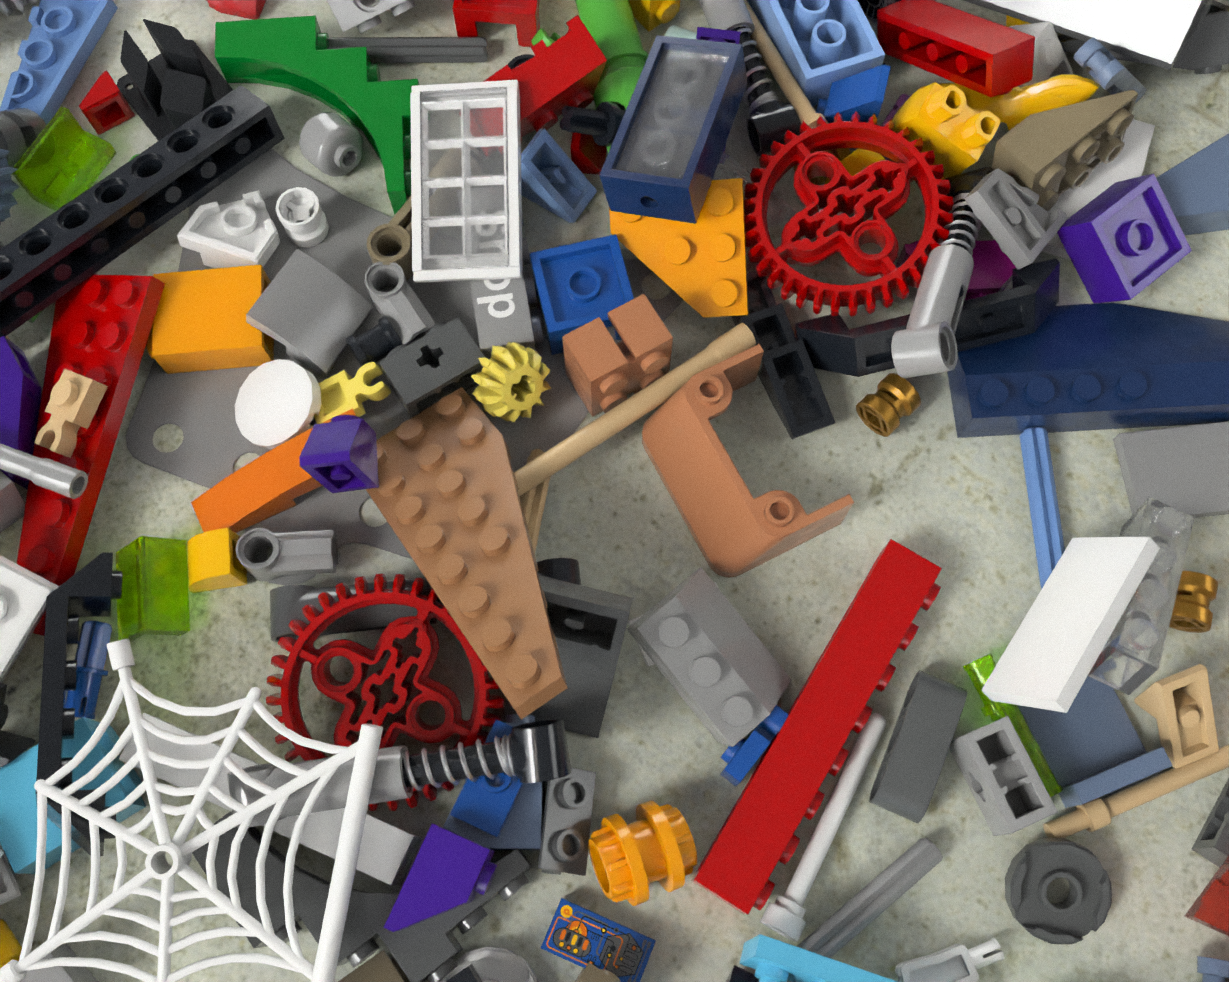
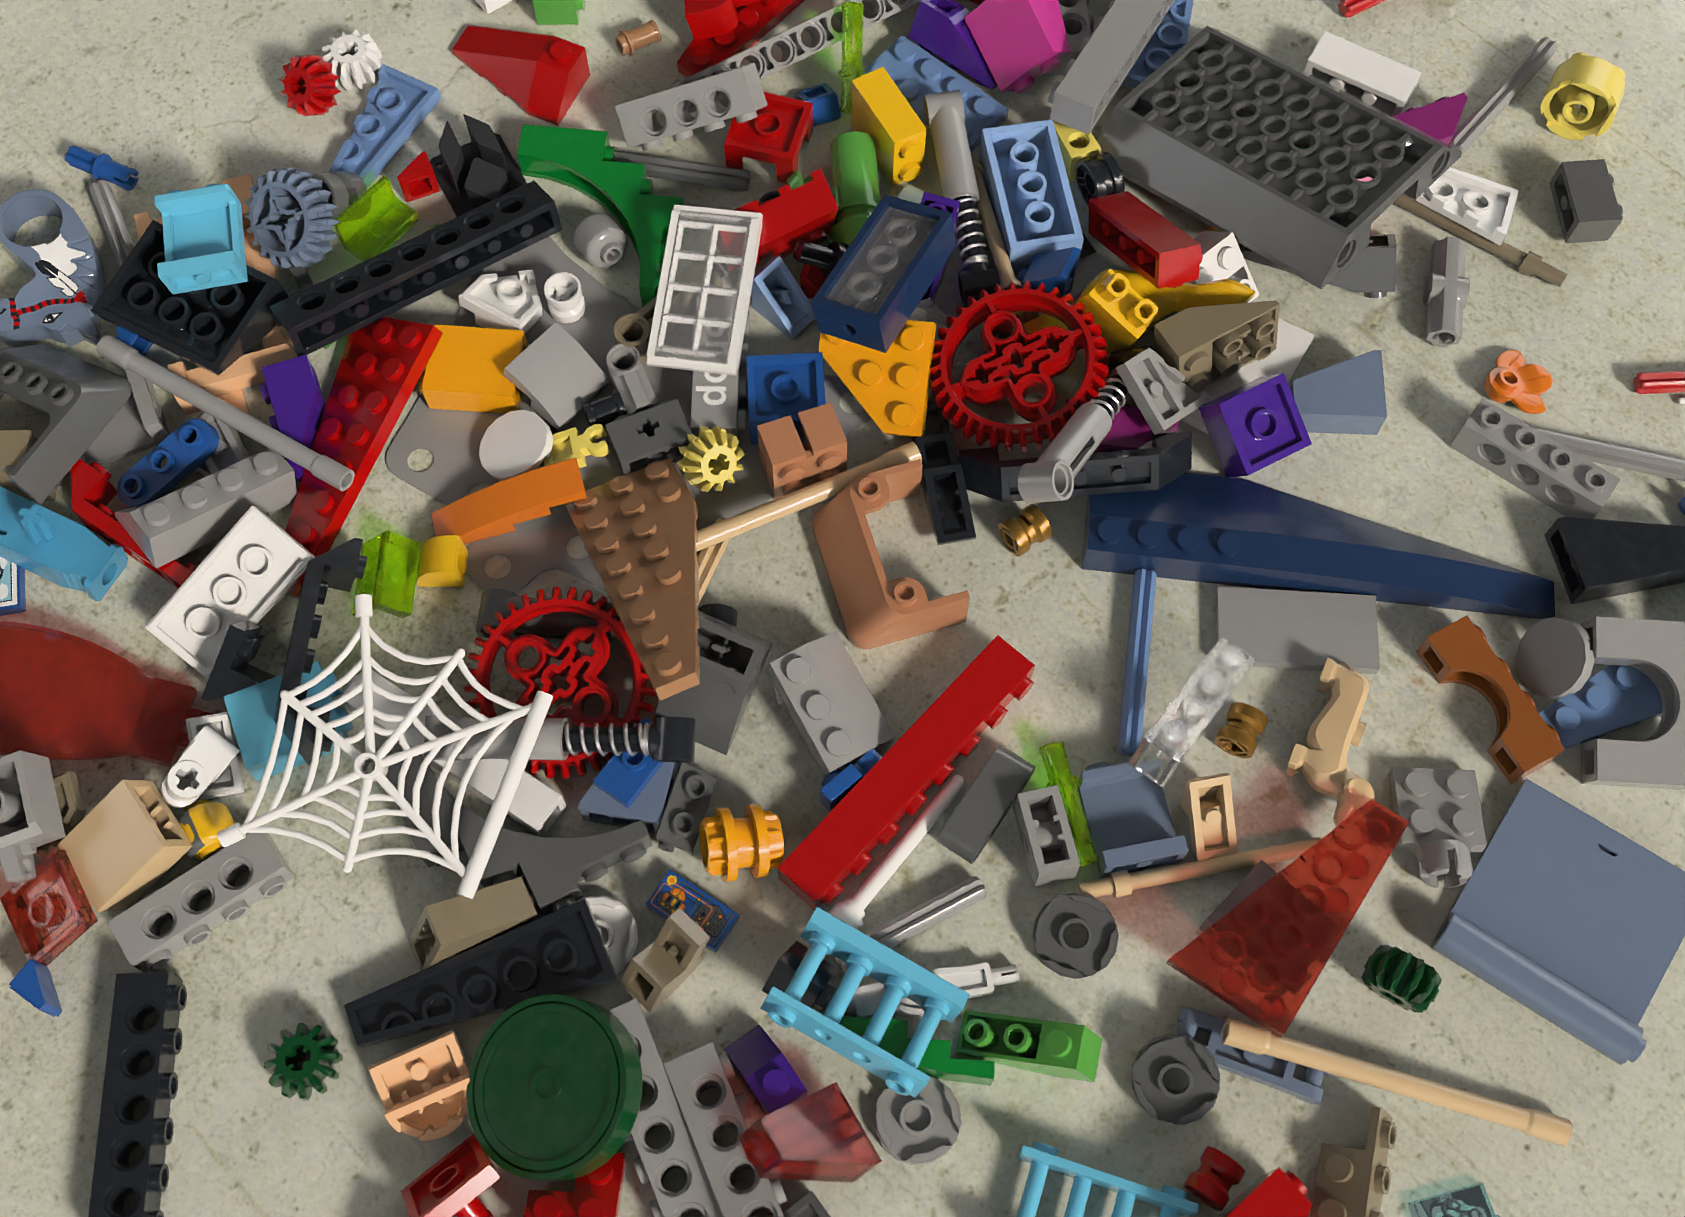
camera: 10 degrees right, 5 degrees down
(72, 405) = (350, 419): tan plate -> none
(91, 660) = (332, 616): blue axle -> none
(292, 553) = (505, 565): light grey piece -> none
(342, 454) = (561, 490): dark purple slope -> none
(442, 878) = (576, 826): dark purple slope -> none
(1070, 622) = (1126, 719): white tile -> none
(1107, 69) = (1273, 281): sand blue plate -> none

